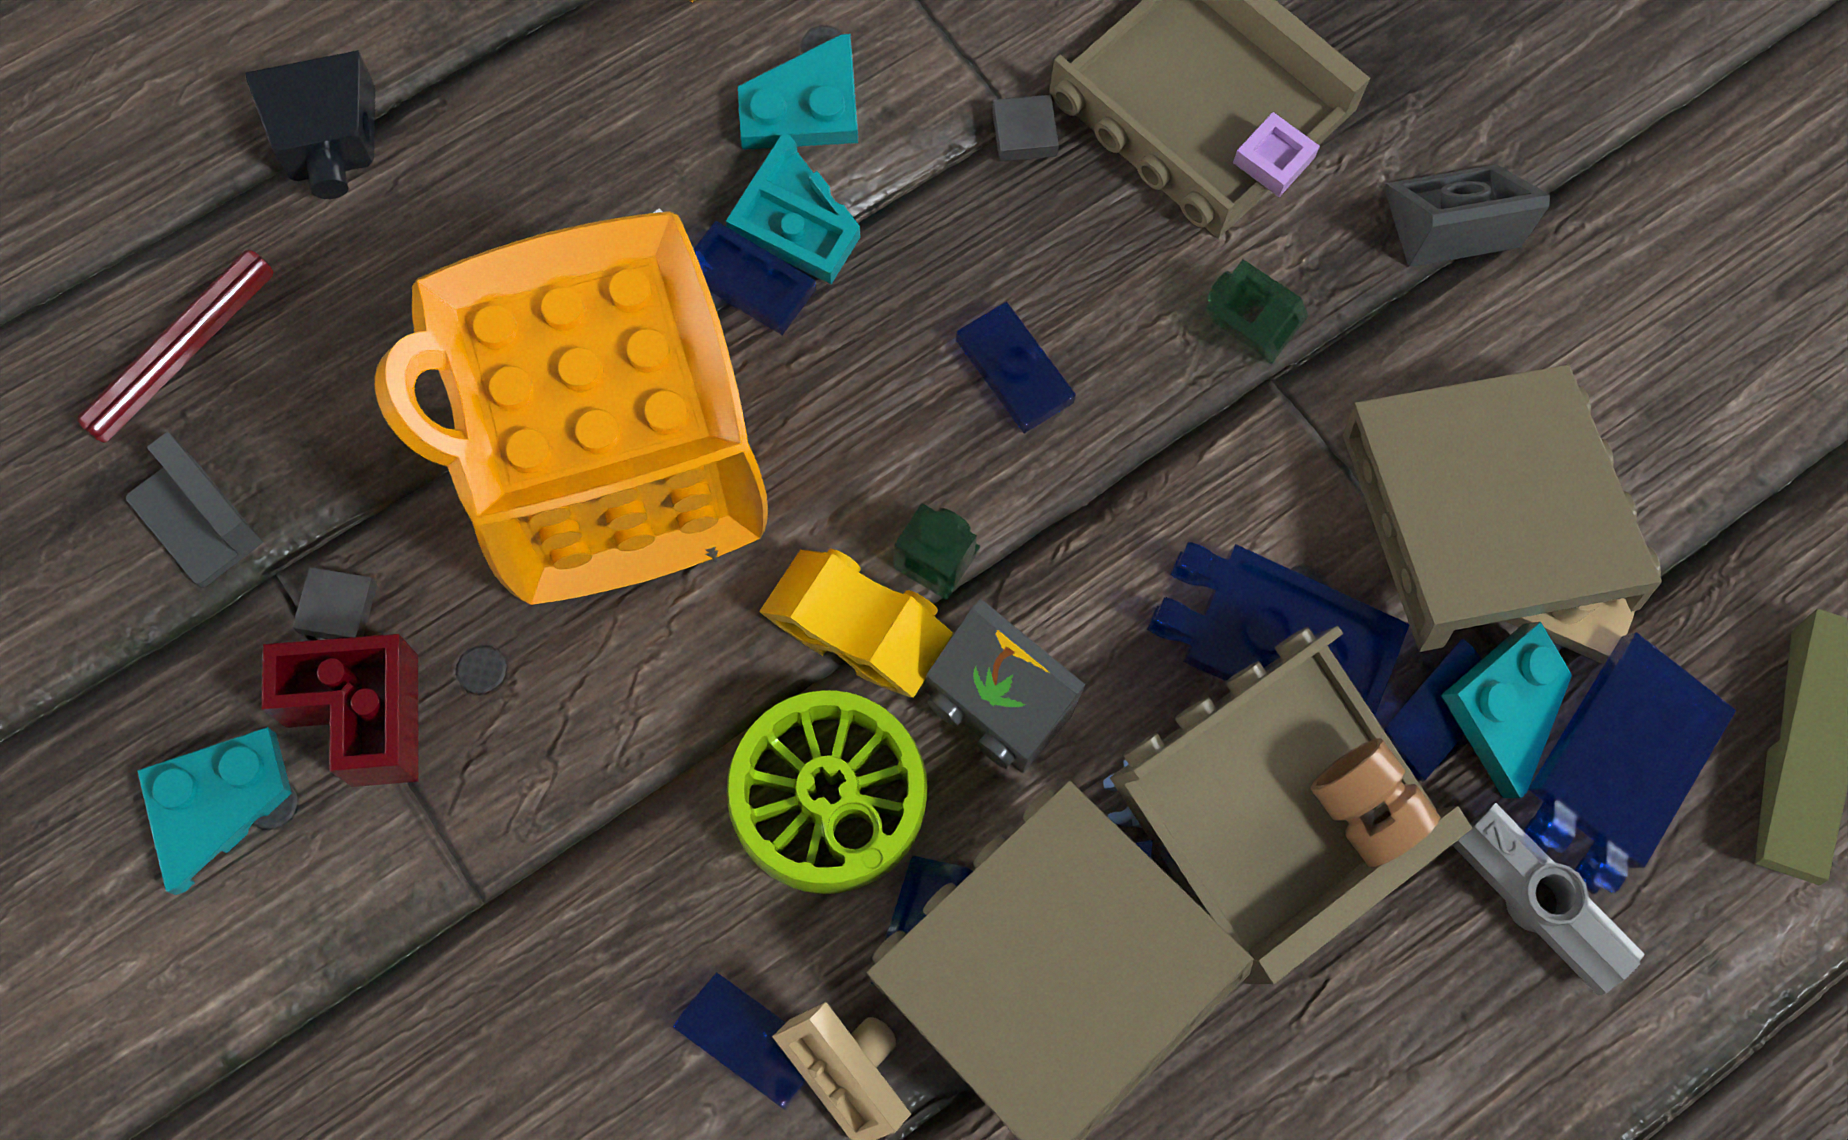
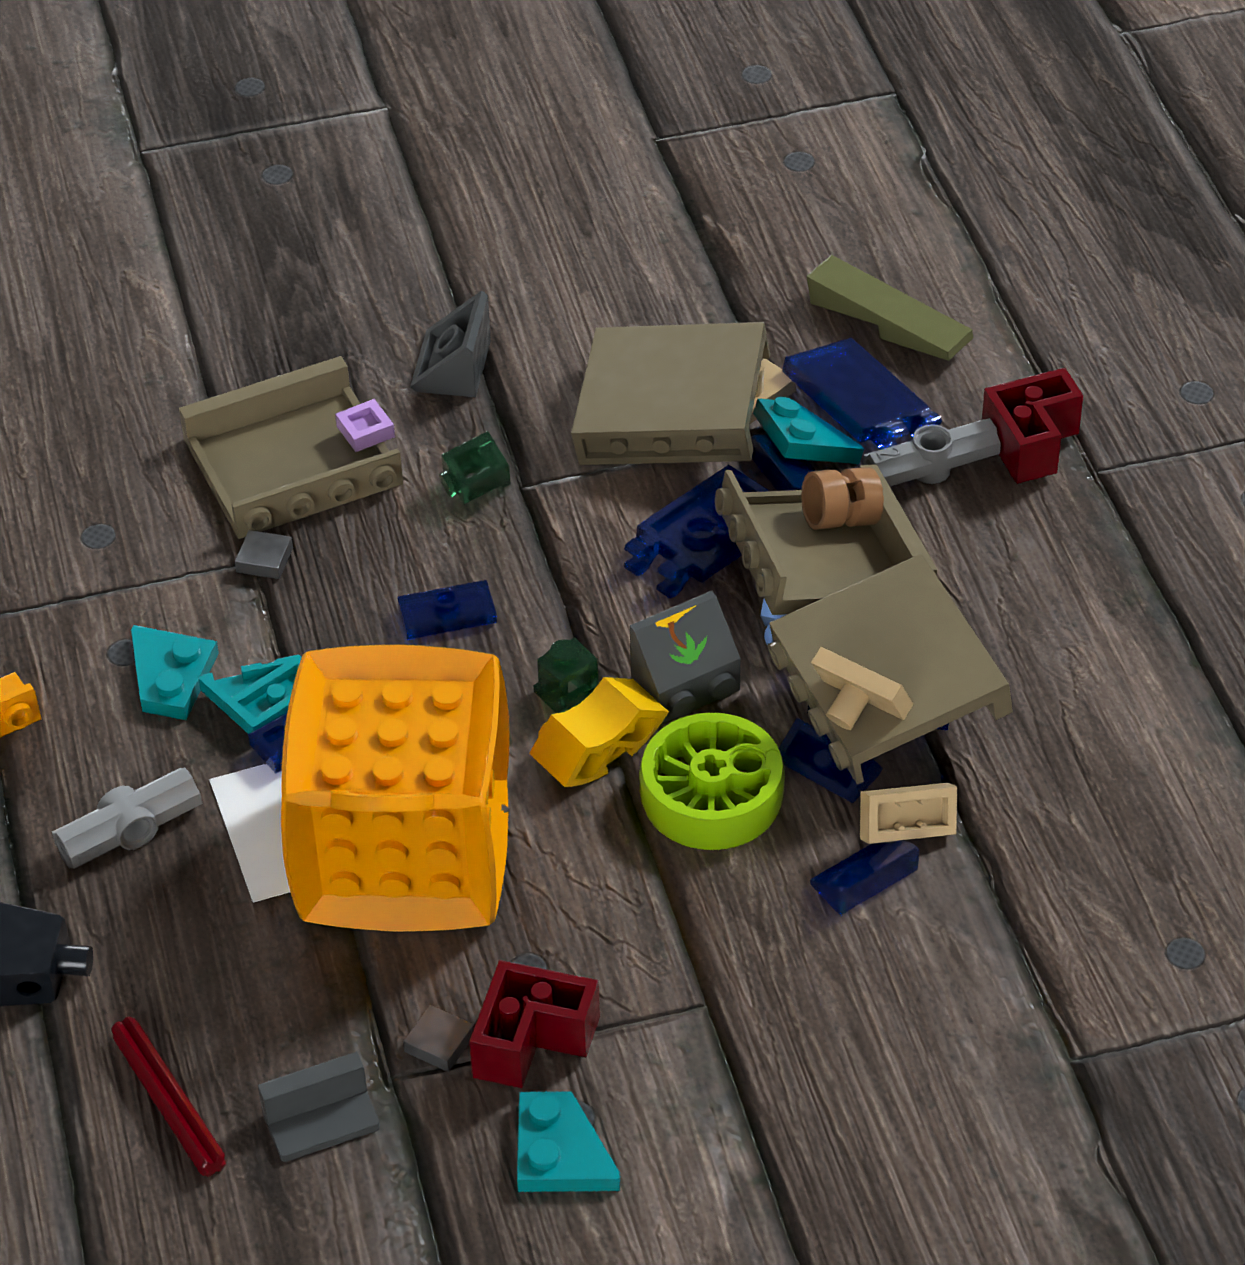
camera: 65 degrees left, 25 degrees down
(552, 144) = (127, 817): none -> light grey piece
(957, 950) = (857, 689): none -> tan tile
(1675, 1016) = (1032, 420): none -> dark red brick

